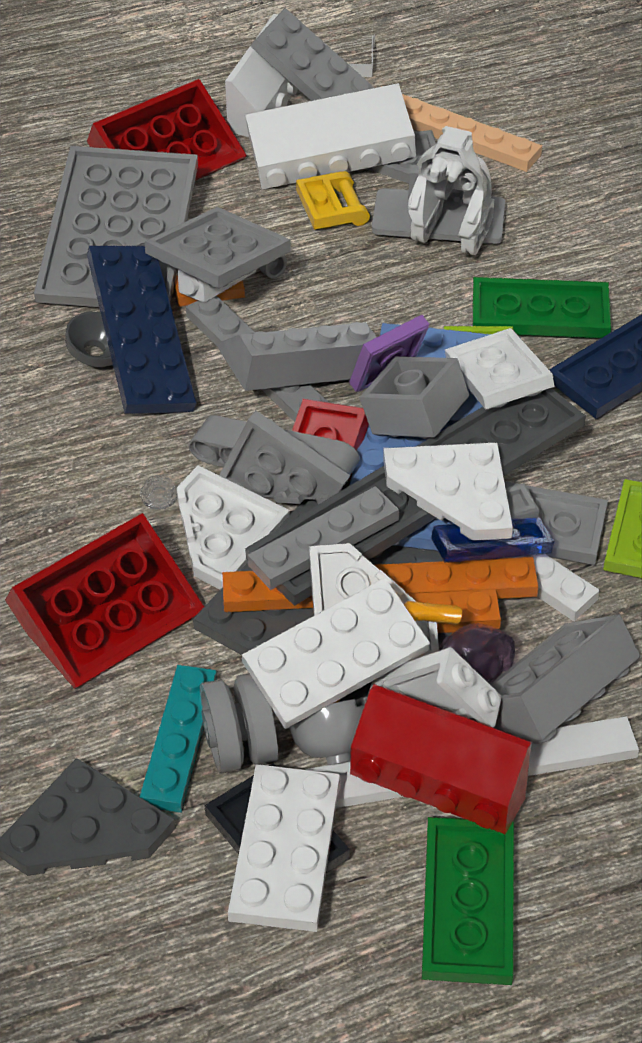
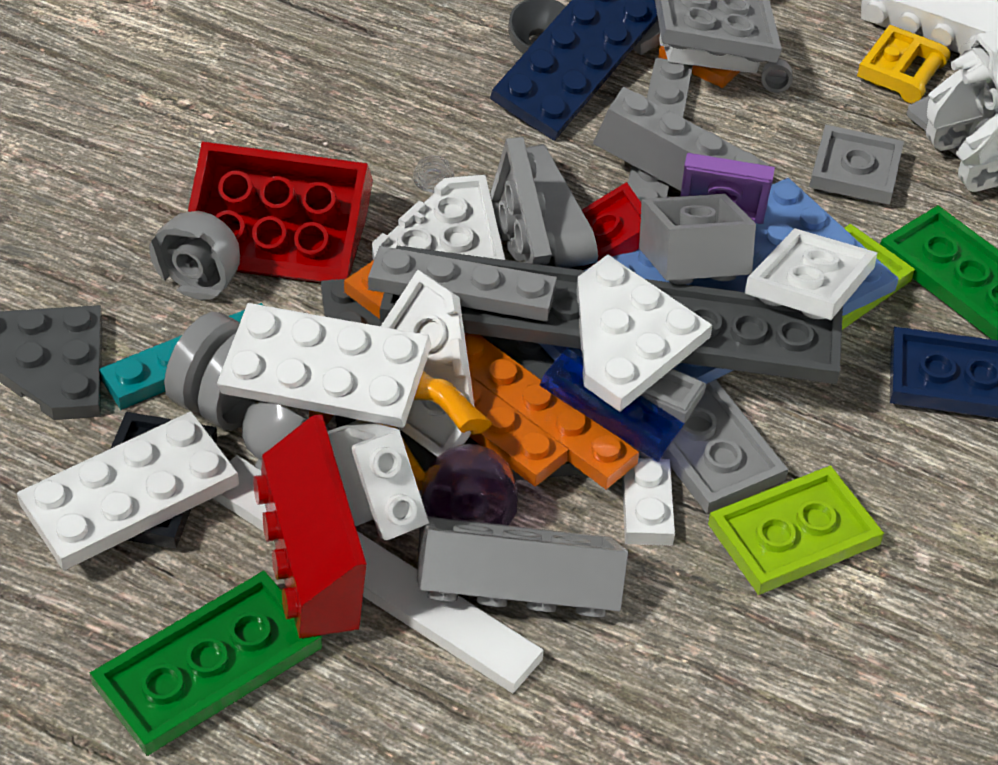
camera: 45 degrees right, 0 degrees up
(104, 666) = (196, 254): none -> light grey cylinder
(393, 286) = (857, 164): none -> light grey plate

